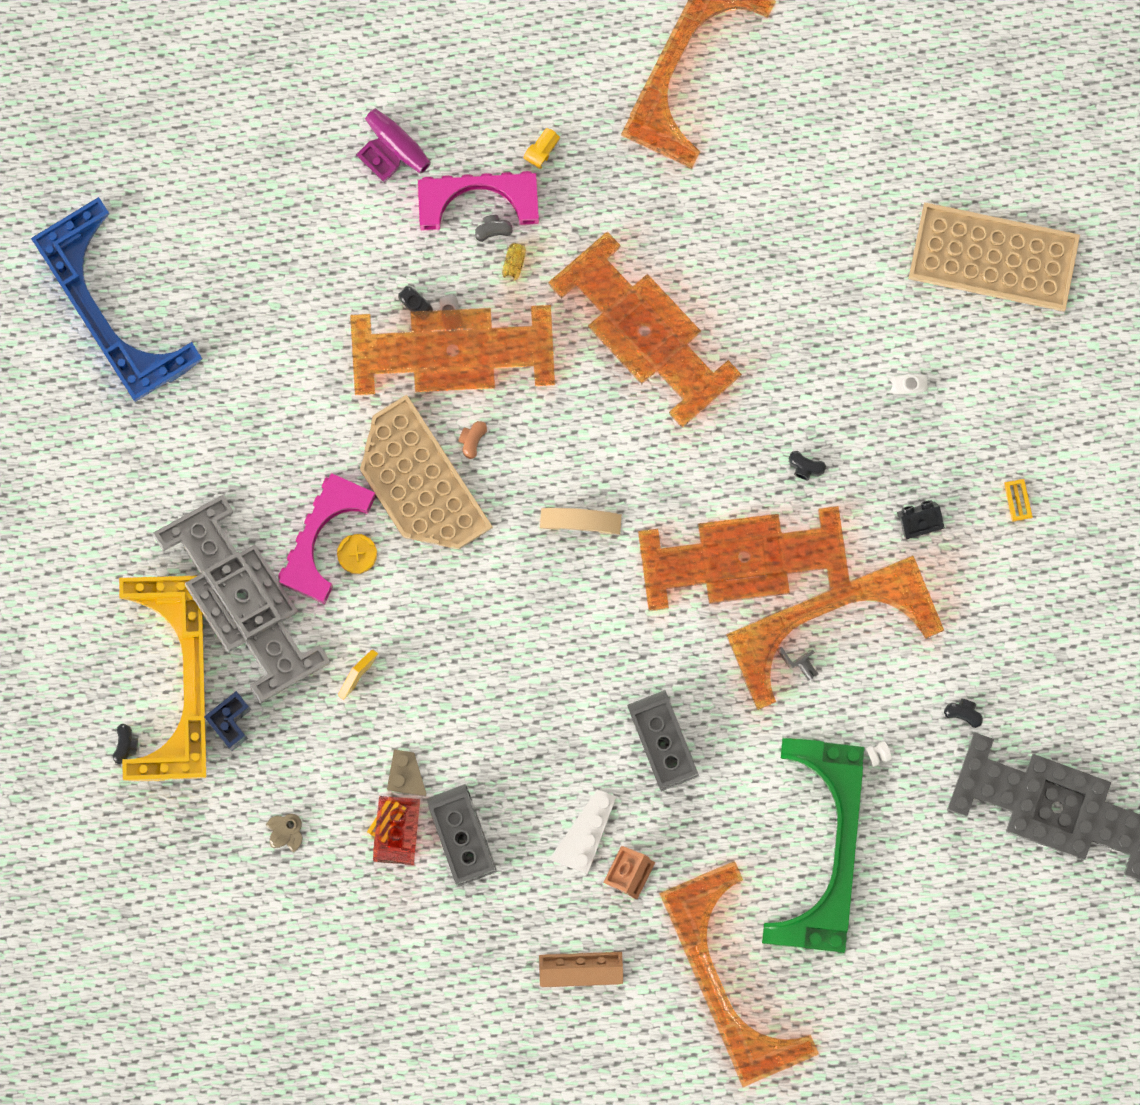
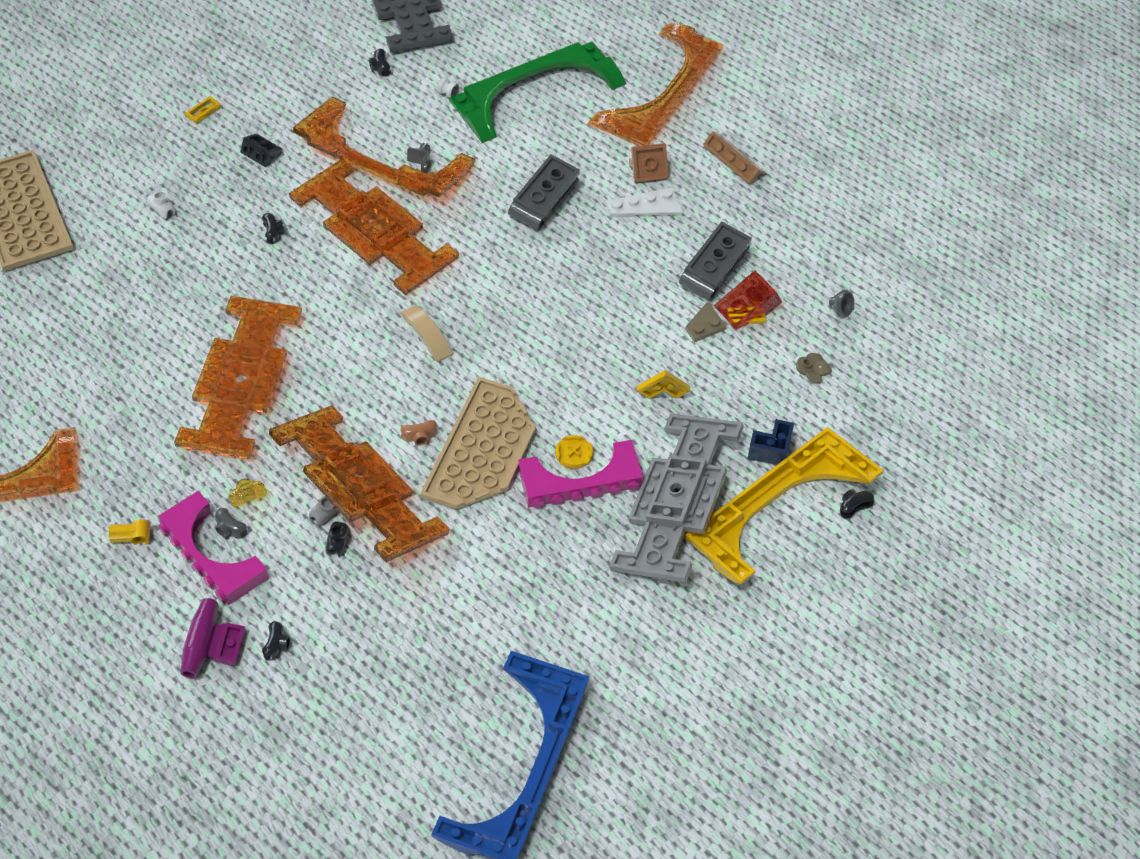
camera: 130 degrees left, 25 degrees down
(329, 914) = (842, 303): none -> dark grey piece
(353, 198) = (276, 642): none -> black piece

